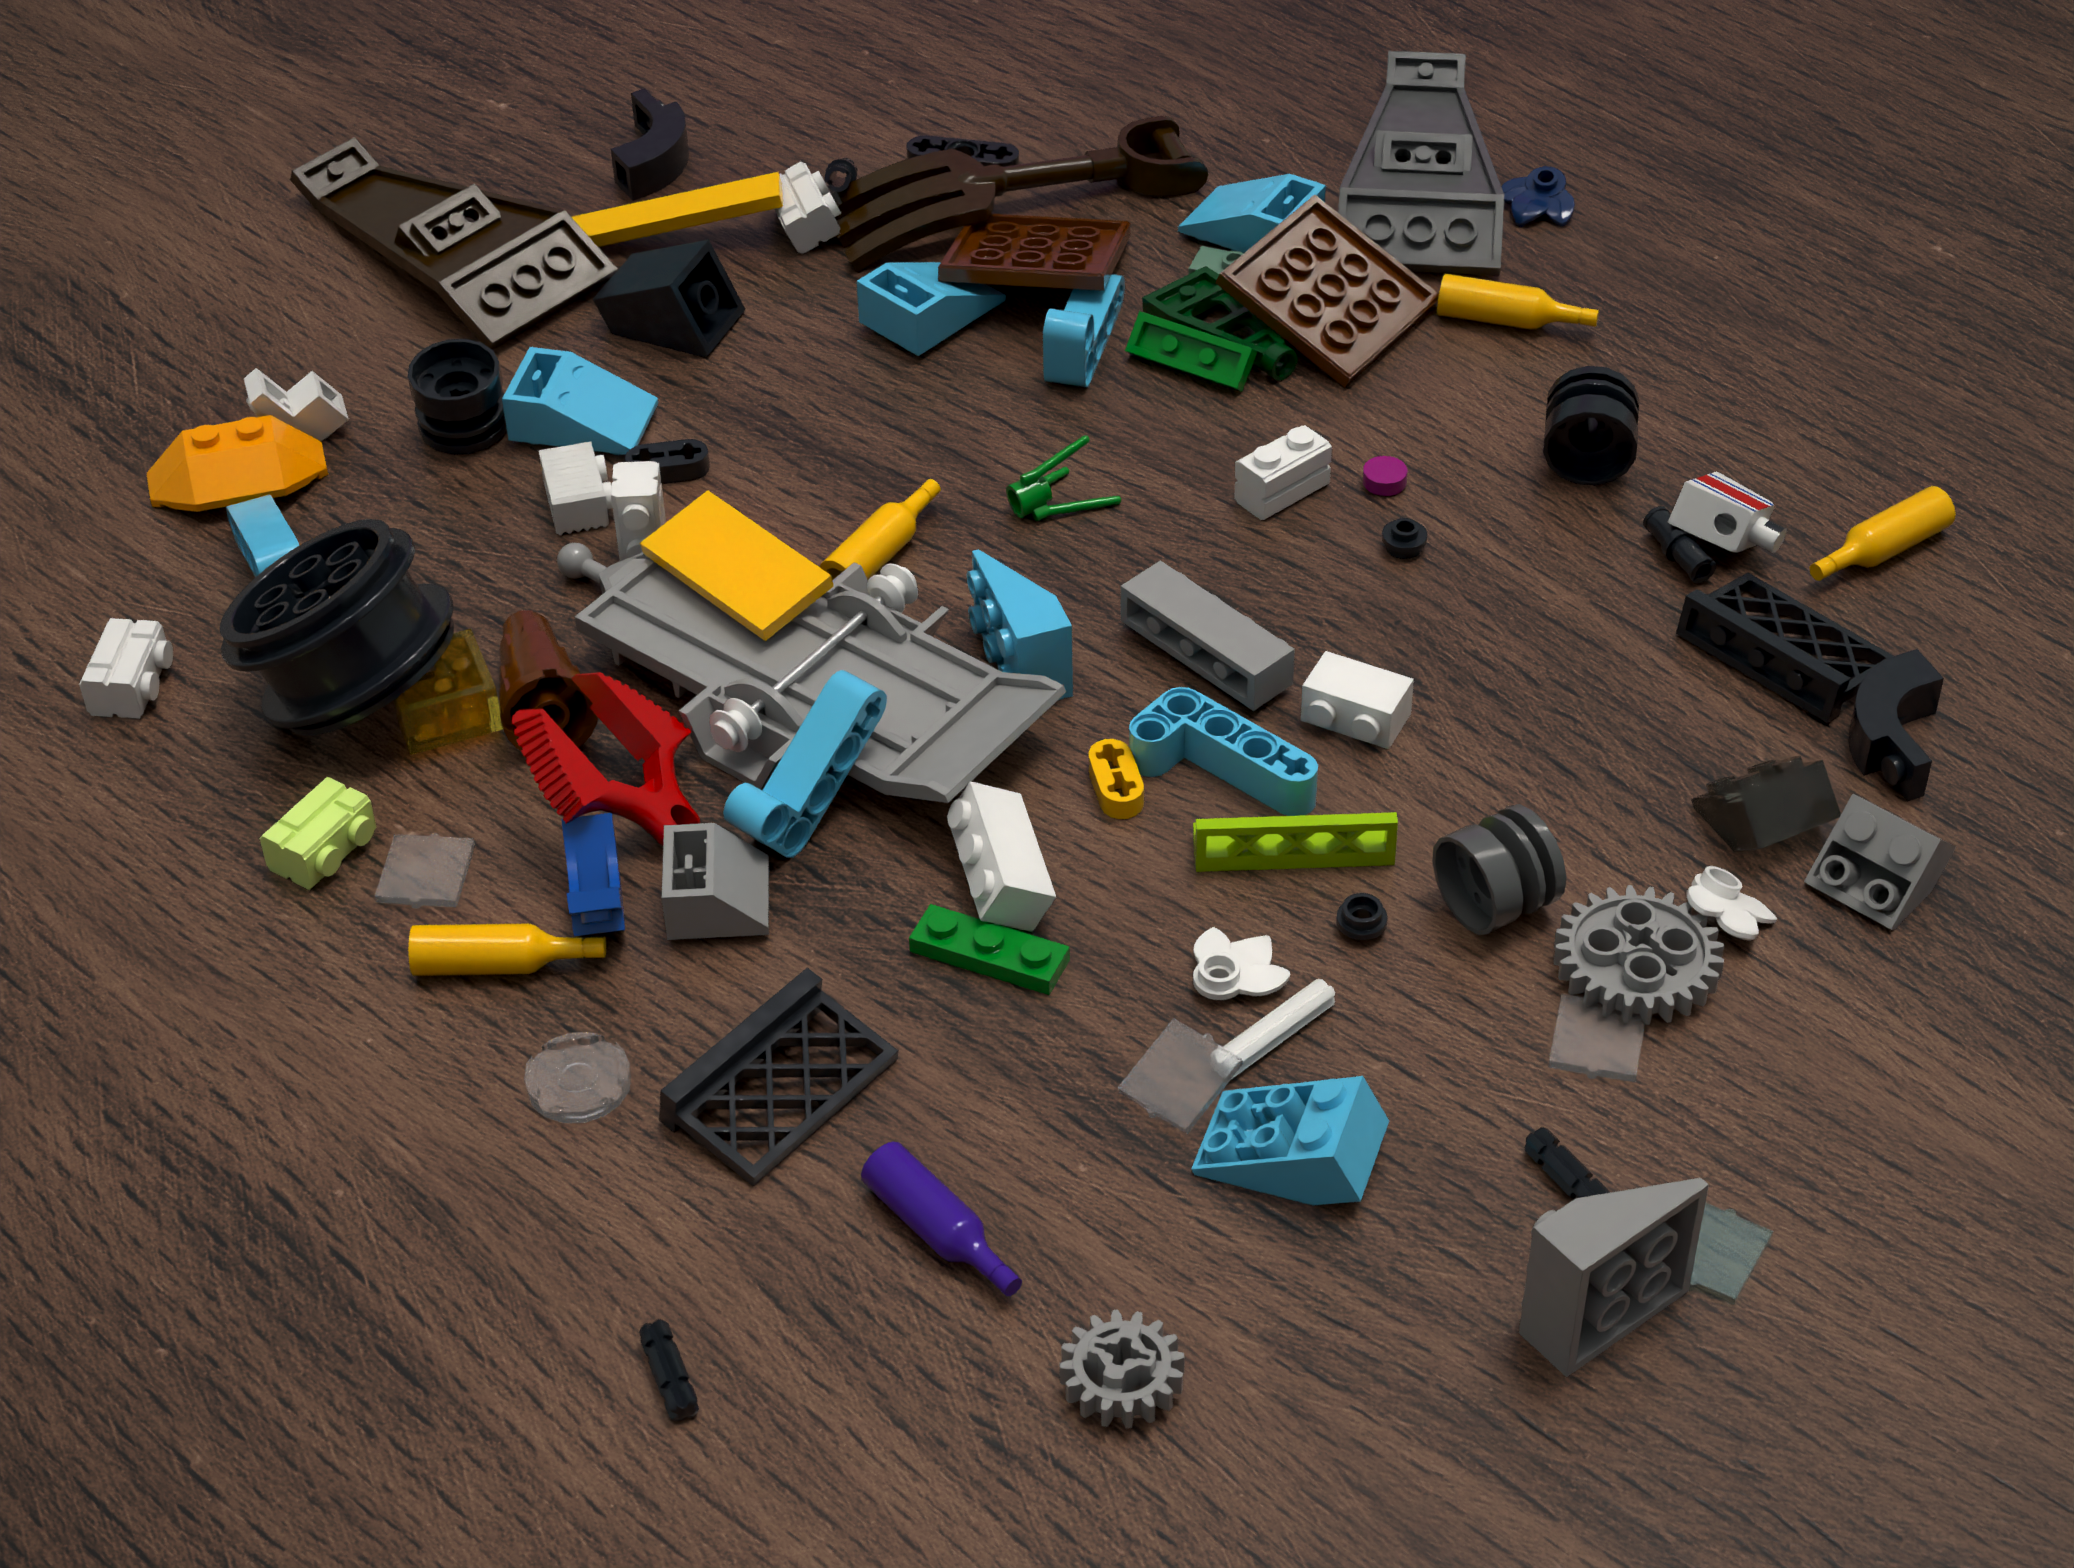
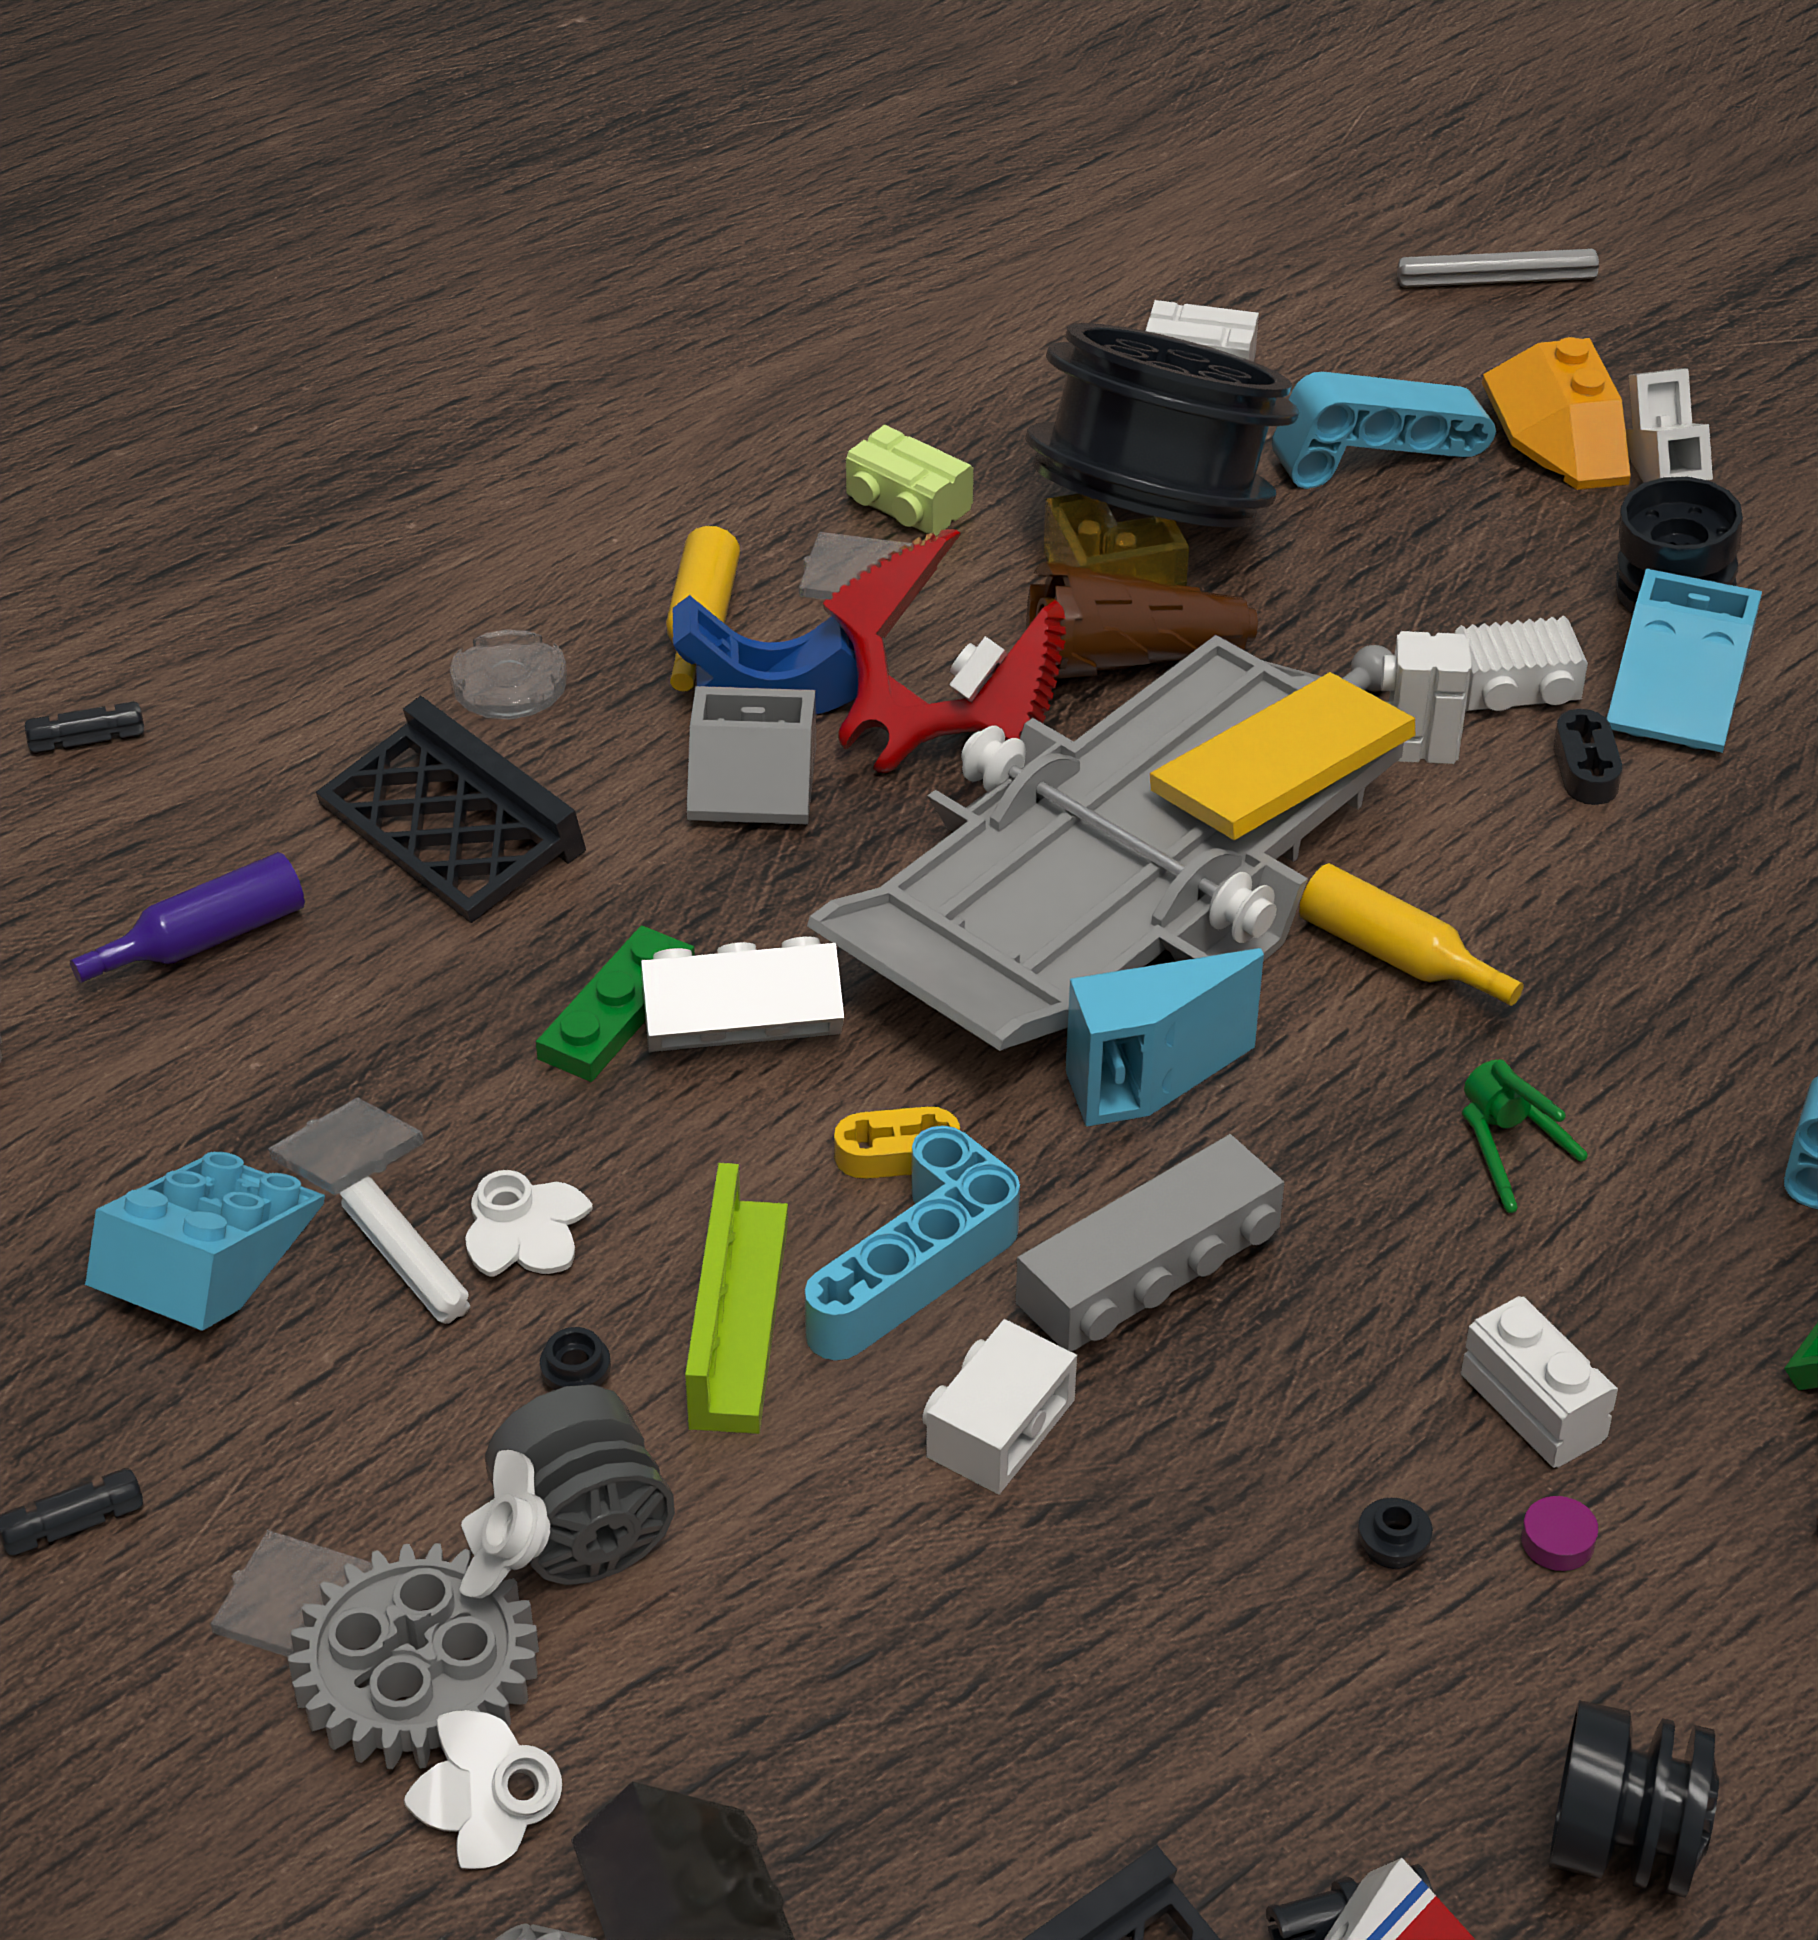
camera: 95 degrees right, 0 degrees up
(17, 510) = (1497, 268): none -> light grey axle
(627, 740) = (975, 667): none -> white plate
(811, 767) = (888, 821): medium azure beam -> none
(1558, 888) = (506, 1529): none -> white plate

